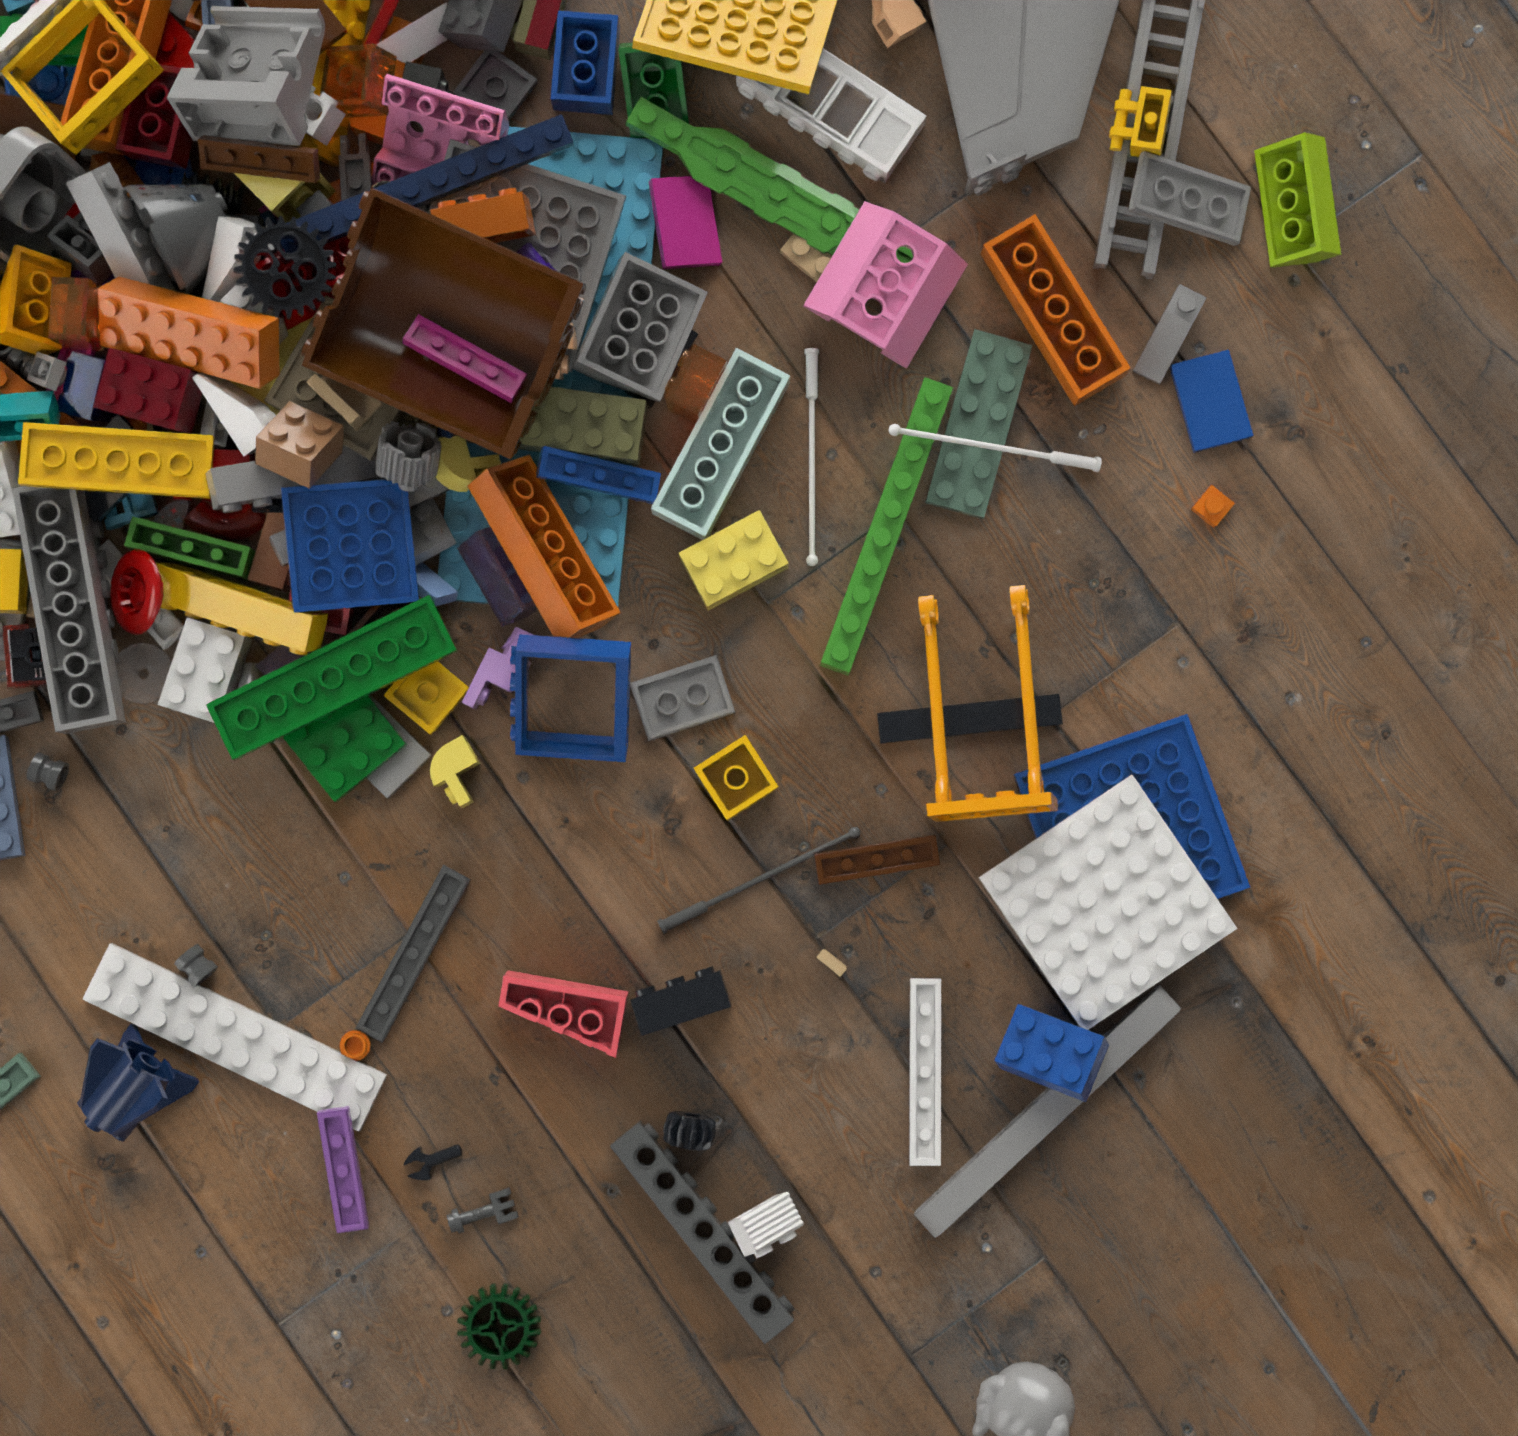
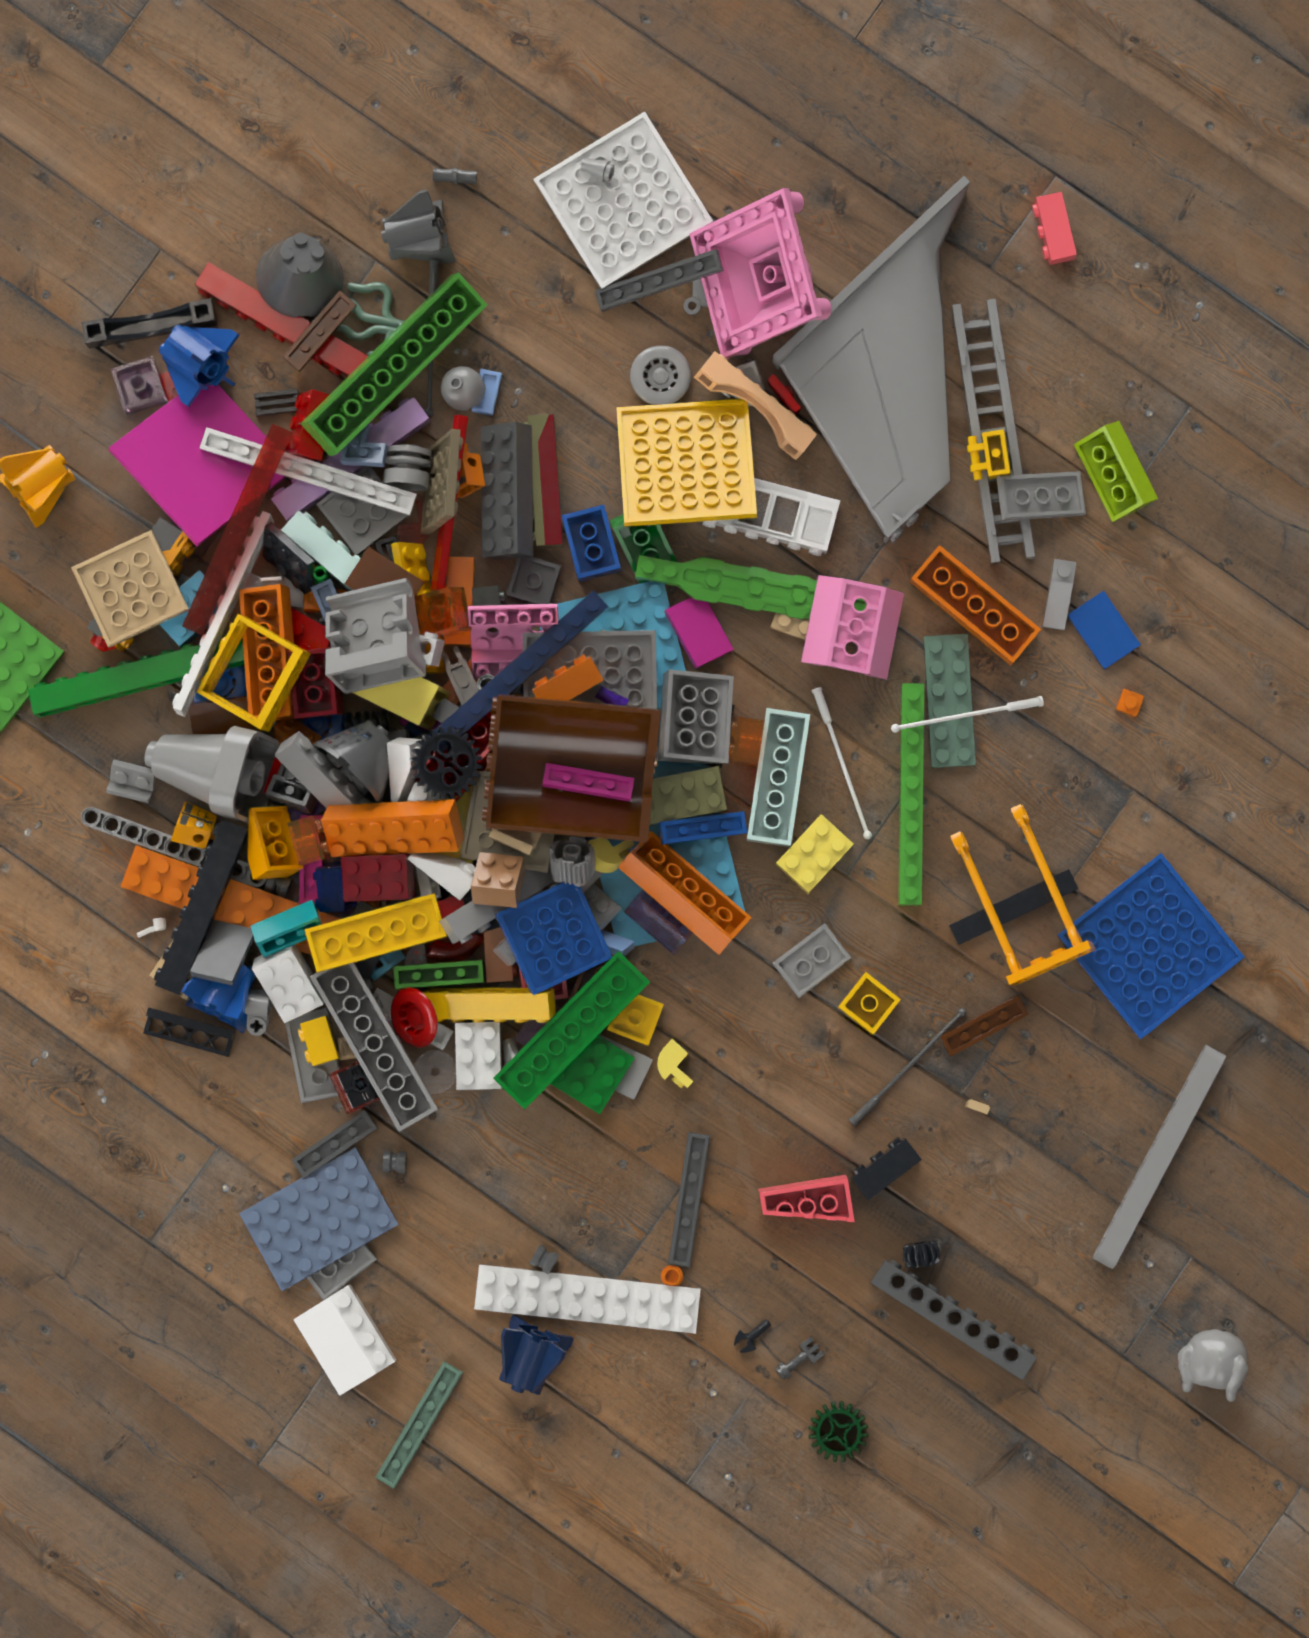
camera: 15 degrees left, 0 degrees up
(47, 371) = (300, 887): light grey plate -> none
(259, 158) = (399, 693): reddish brown plate -> none
(343, 1169) = (694, 1362): medium lavender tile -> none
(416, 37) = (469, 567): white sticker -> none
(495, 670) = (682, 983): lavender plate -> none
(564, 744) = (748, 1019): blue window -> none
(765, 1224) = (995, 1298): white brick -> none
(925, 1072) = (1067, 1159): white plate -> none
(1052, 1052) = (1148, 1116): blue brick -> none
(1107, 903) = (1151, 1001): white plate -> none

